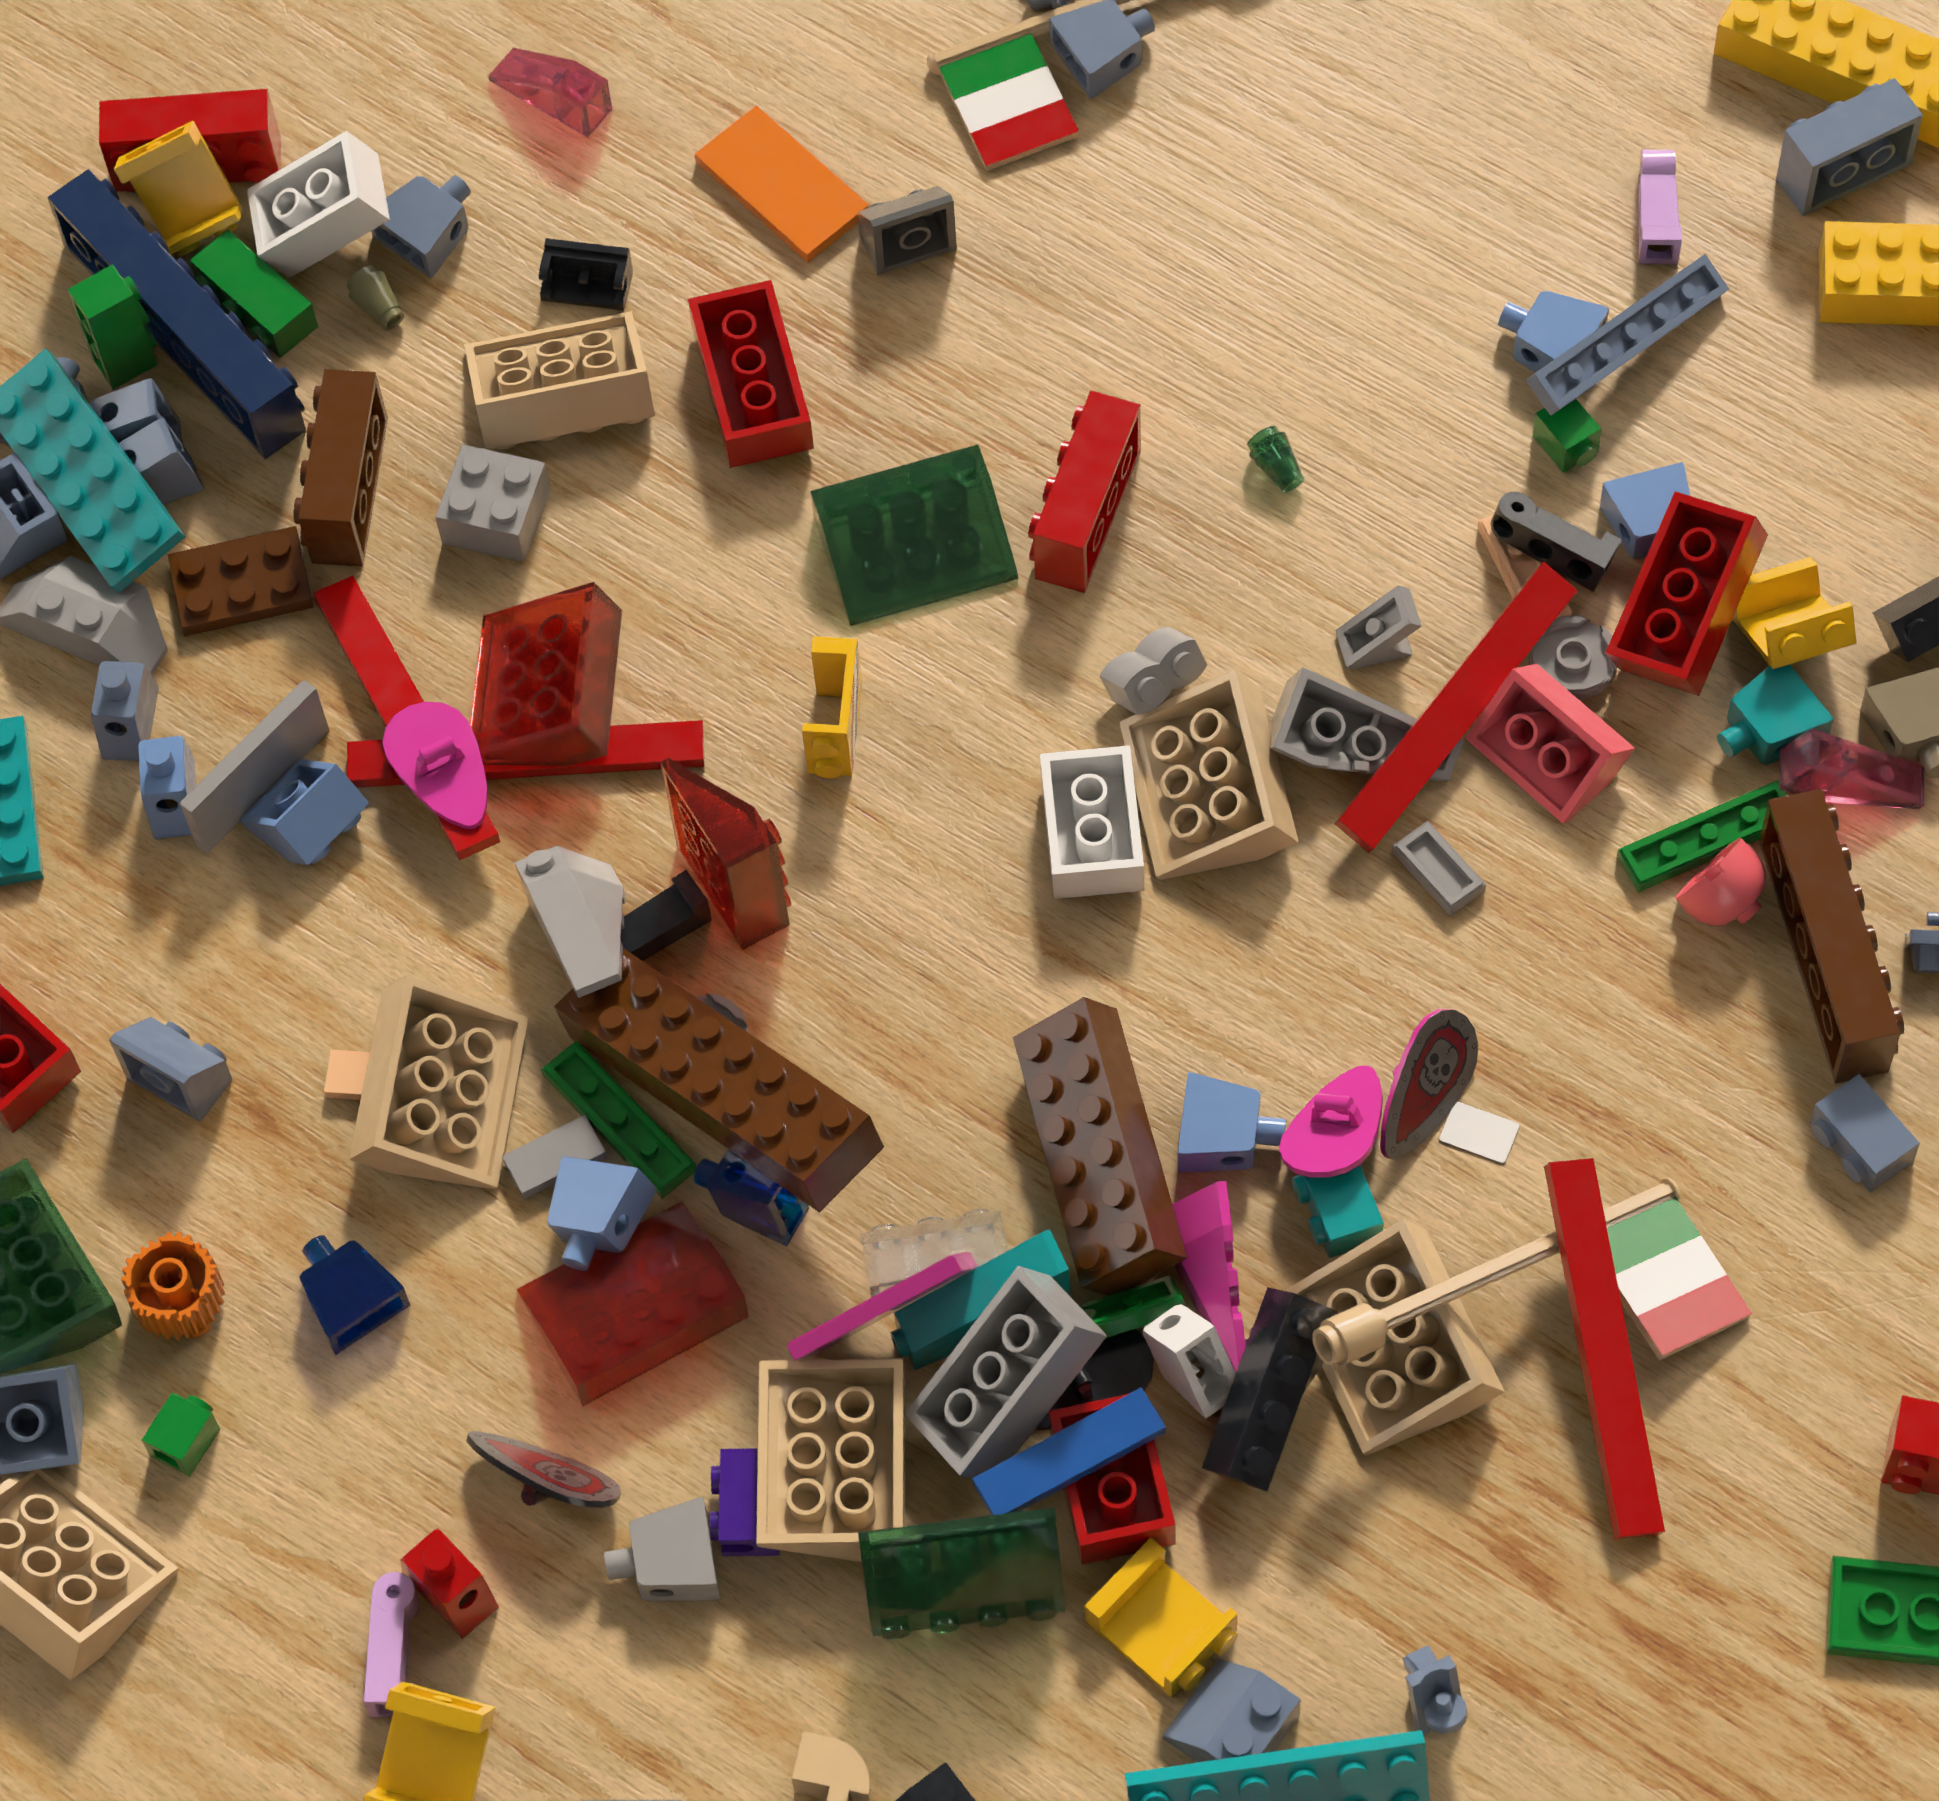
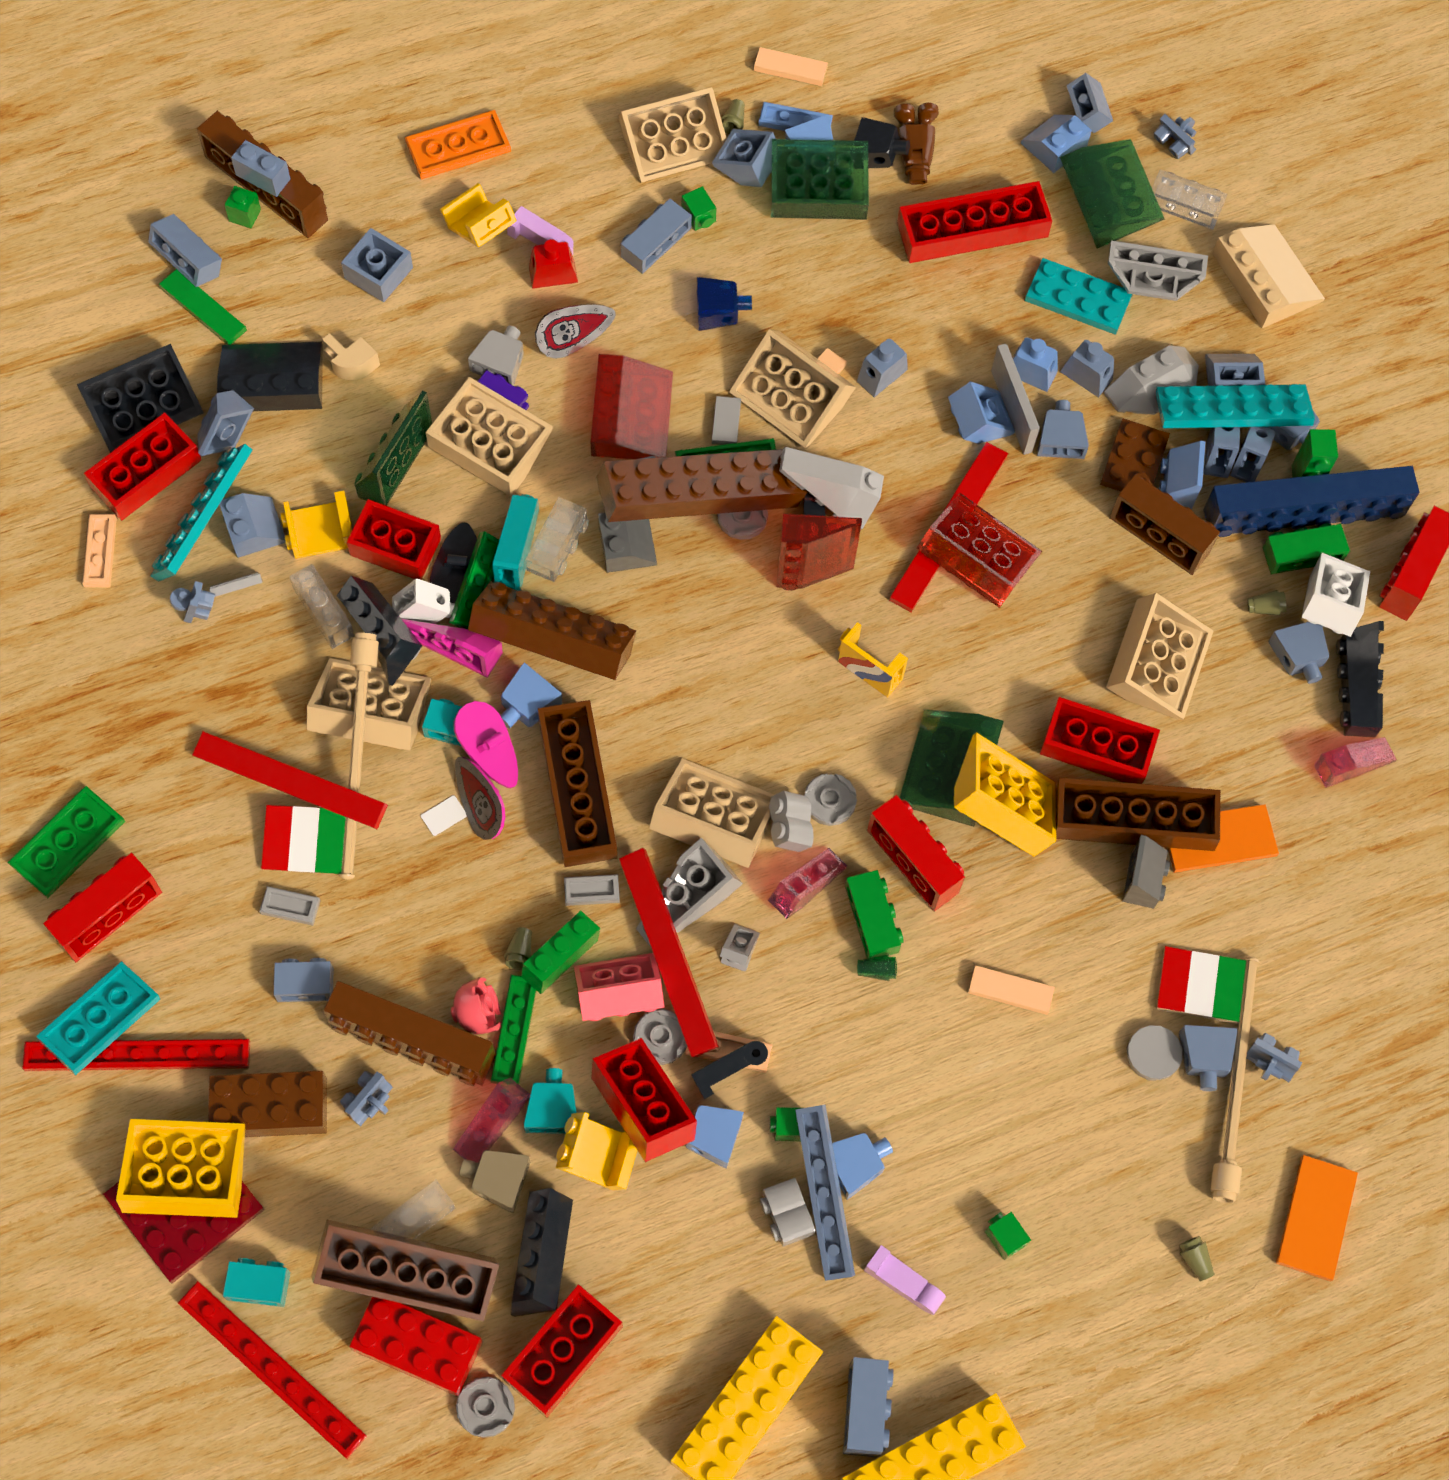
camera: 115 degrees right, 5 degrees up
(171, 1308) = (769, 237): orange brick -> none
(172, 1065) = (880, 288): sand blue slope -> none
(181, 188) = (1387, 541): yellow panel -> none
(238, 487) = (1183, 473): none -> medium blue slope
(255, 682) = (1063, 433): none -> sand blue torso
(278, 1467) = (655, 235): none -> sand blue brick
(309, 979) = (884, 363): none -> sand blue torso
(386, 682) = (1003, 481): red tile -> none
(432, 125) = (1361, 680): none -> black wedge
(439, 761) = (963, 476): dark pink shield -> none
(493, 503) = (1101, 584): light grey brick -> none
(585, 274) = (1218, 706): black hinge -> none
(596, 1207) = (683, 415): medium blue torso -> none
(830, 274) = (1127, 810): none -> reddish brown brick
(881, 1305) = (538, 487): dark pink tile -> none
(891, 1171) = (626, 544): none -> dark grey slope
(924, 421) = (1006, 796): none -> yellow slope
(1005, 1373) = (465, 513): light grey brick -> none
(1070, 1454) = (409, 517): blue tile -> none
(1071, 658) = (831, 799): none -> light grey tile
(1092, 822) = (726, 738): white brick -> none
(1143, 104) = (1154, 1053): none -> light grey tile
(1183, 300) = (1011, 990): none -> light nougat tile
(1208, 503) = (873, 914): none -> green brick
(1227, 605) = (806, 883): none -> clear pink slope
(1294, 1511) = (322, 606): none -> clear brick
(1306, 968) = (577, 783): none -> reddish brown brick
(1354, 1666) = (236, 584): none -> light grey tile
(1511, 128) = (1007, 1234): none -> green brick
(1565, 831) = (560, 952): none -> green brick
(1597, 896) = (519, 949): none -> olive cone
(1681, 372) = (788, 1212): none -> light grey brick
(1772, 1238) = (290, 905): none -> light grey tile

